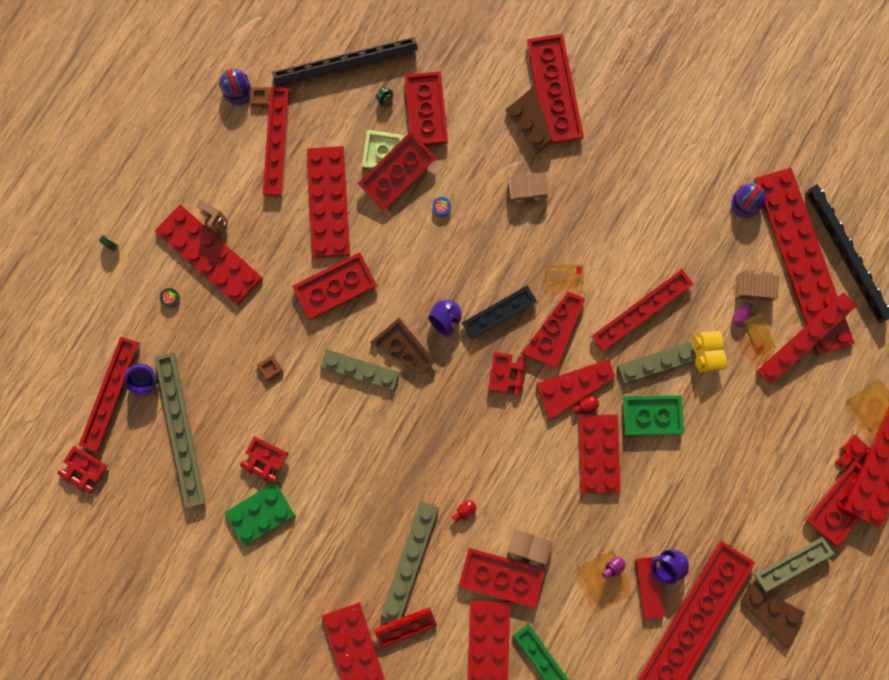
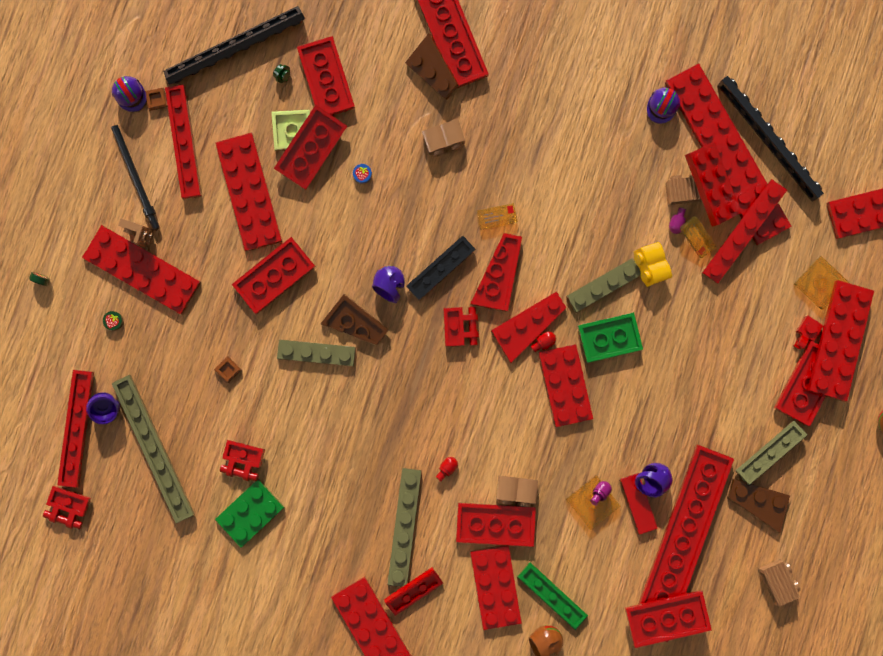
camera: 15 degrees left, 5 degrees up
(228, 199) = (148, 210): none -> black bar
(642, 310) = (579, 236): red plate -> none
(784, 285) = (713, 184): none -> red plate

